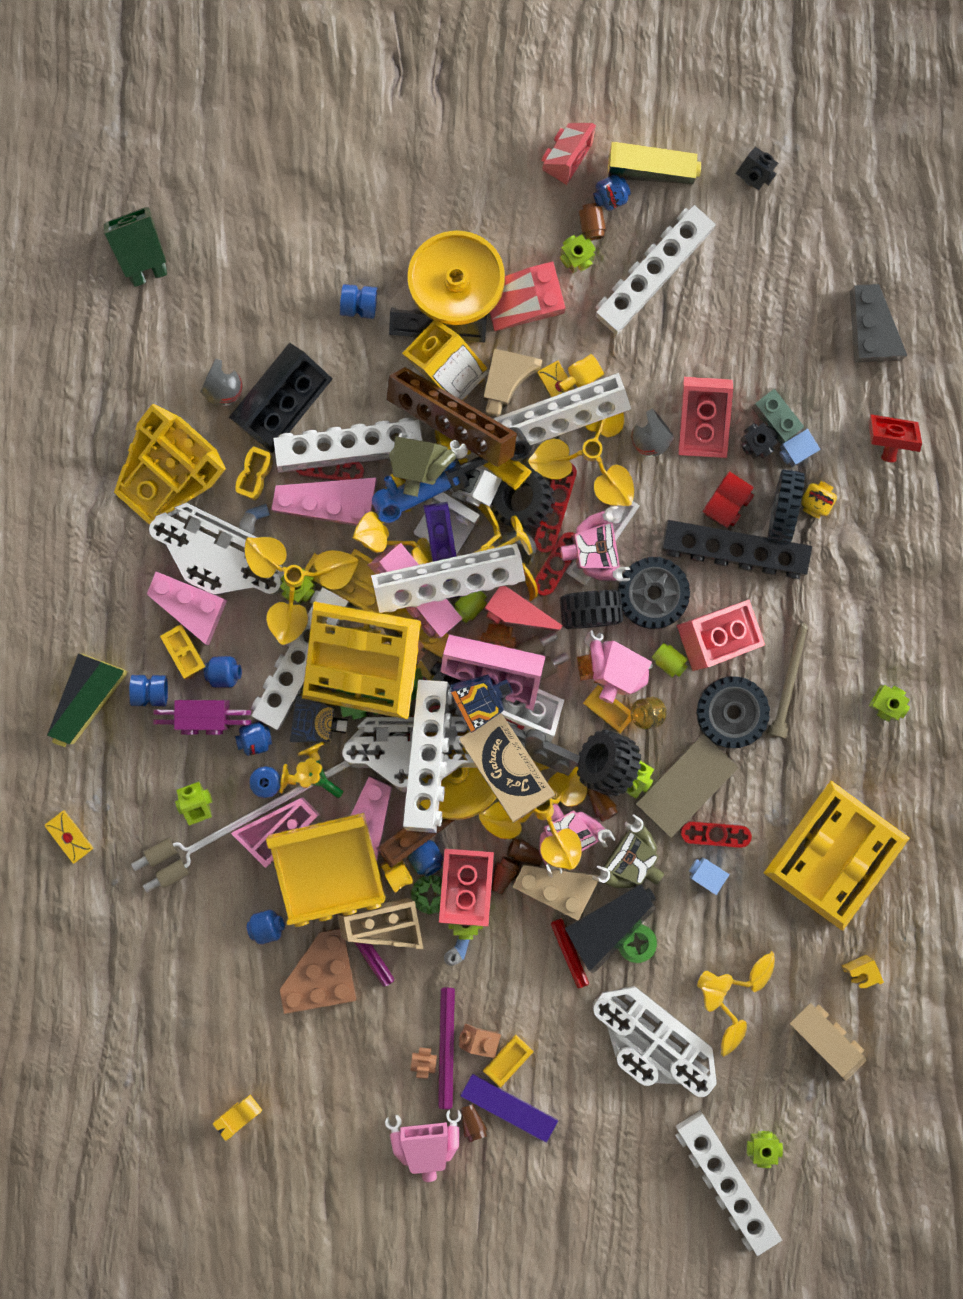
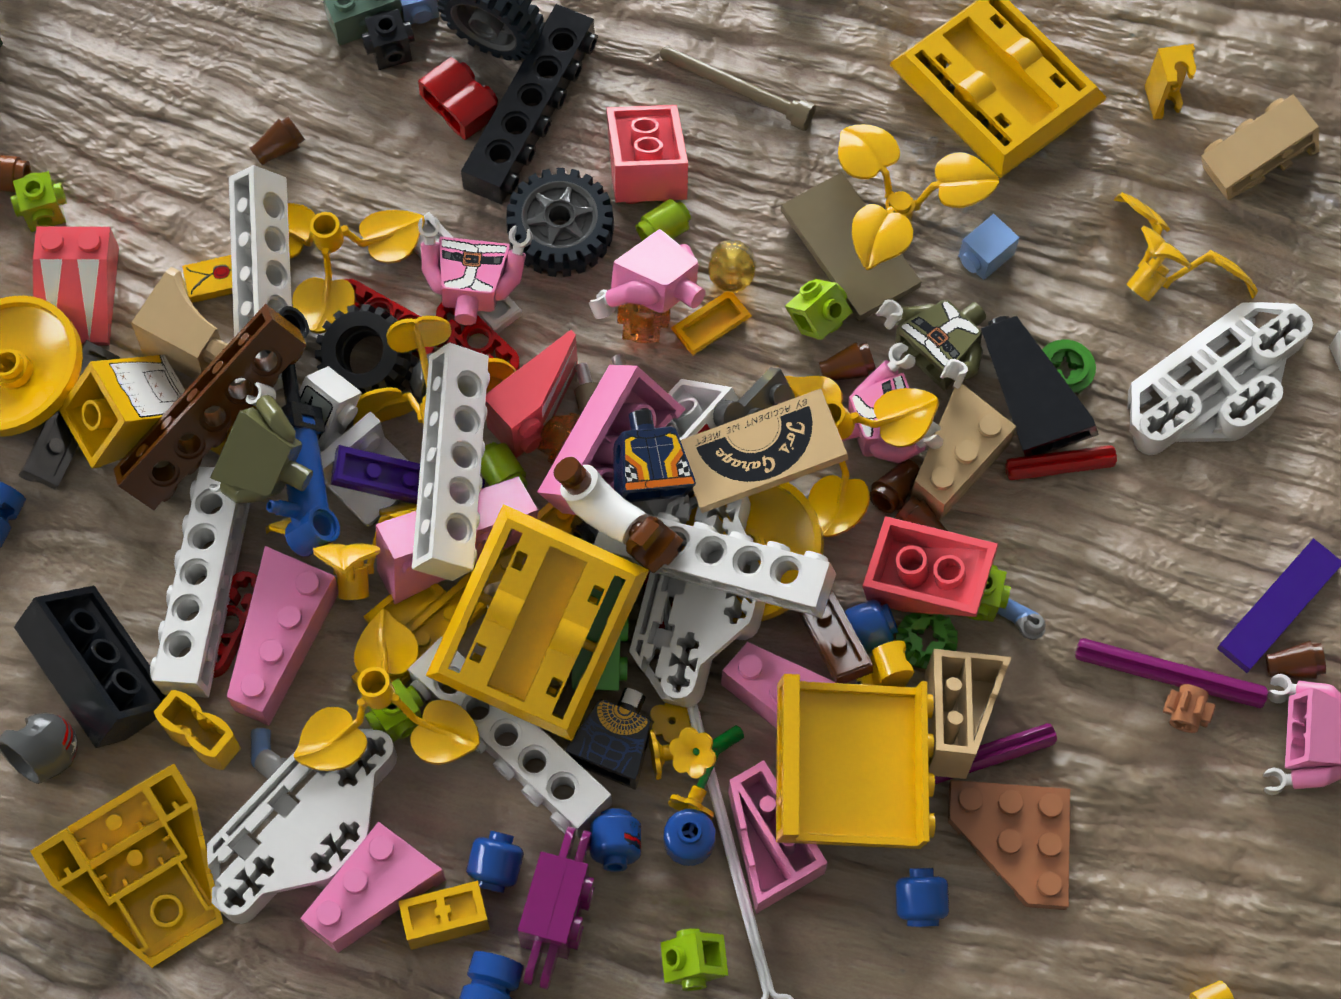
camera: 75 degrees left, 20 degrees down
(330, 753) = (663, 714): none -> yellow plant
(437, 683) = (607, 511): none -> piece
(479, 1041) = (1168, 622): nougat bracket -> none
(508, 1061) = (1207, 590): yellow tile -> none
(510, 472) = (322, 347): yellow tile -> none
(582, 373) = (212, 236): yellow piece -> none
(591, 609) = (558, 295): black tyre -> none
(608, 763) = (813, 313): black tyre -> none
(653, 438) = (337, 164): dark grey helmet -> none
(665, 392) = (277, 141): none -> reddish brown cone
(690, 219) = (63, 42): white brick -> none
(705, 417) = (332, 96): coral slope -> none
(734, 830) = (933, 242): red beam -> none
(750, 784) = (888, 232): none -> yellow plant
(752, 712) = (762, 138): wheel -> none

